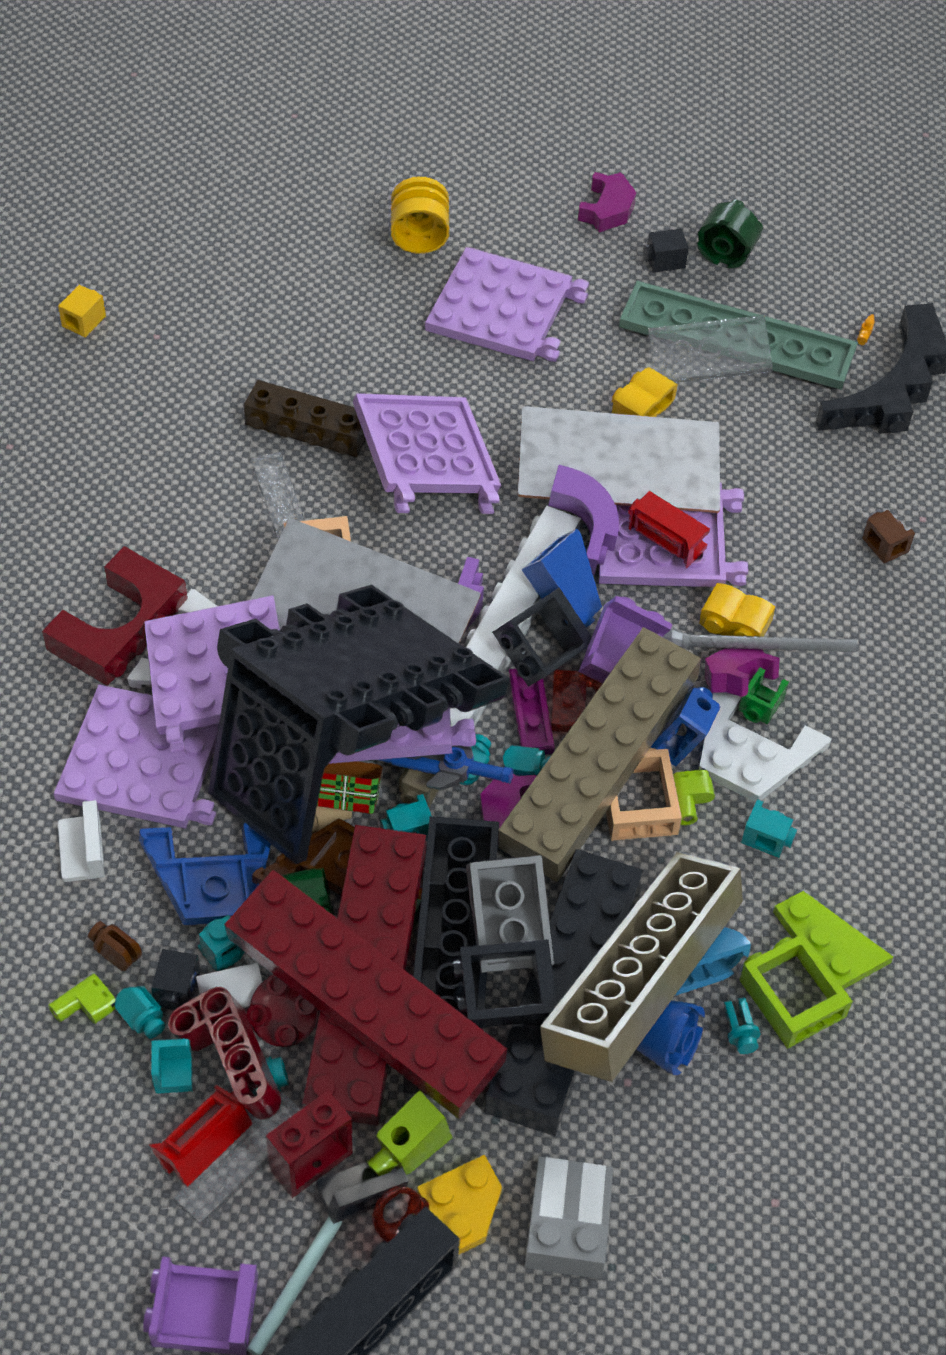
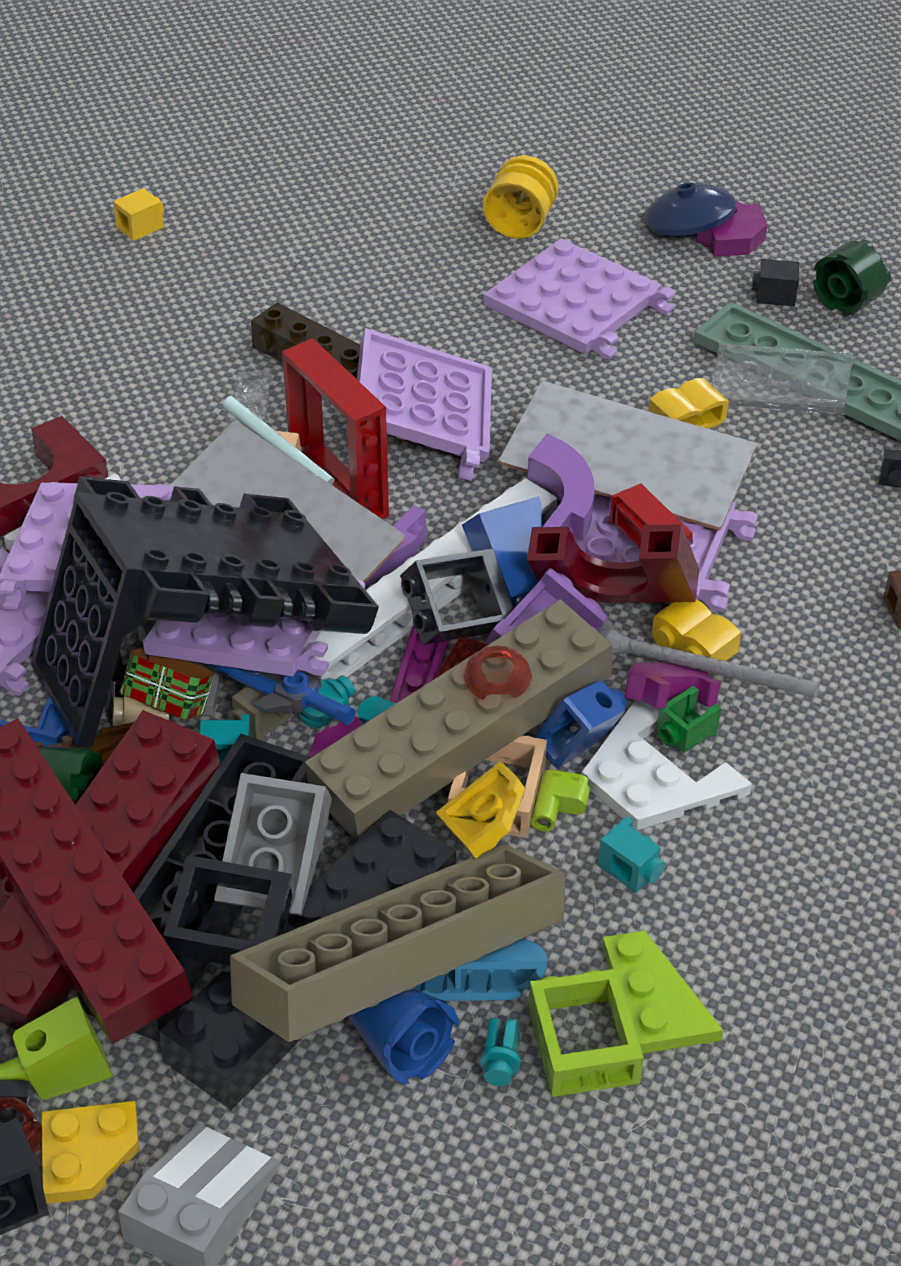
camera: 20 degrees right, 10 degrees down
(328, 526) = (270, 435): none -> light aqua bar
(352, 459) = (313, 372): none -> red window
(565, 193) = (690, 209): none -> dark blue dish
(612, 722) = (517, 681): none -> clear red piece
(652, 829) = (484, 810): none -> yellow plate
(697, 575) = (662, 573): none -> dark red arch

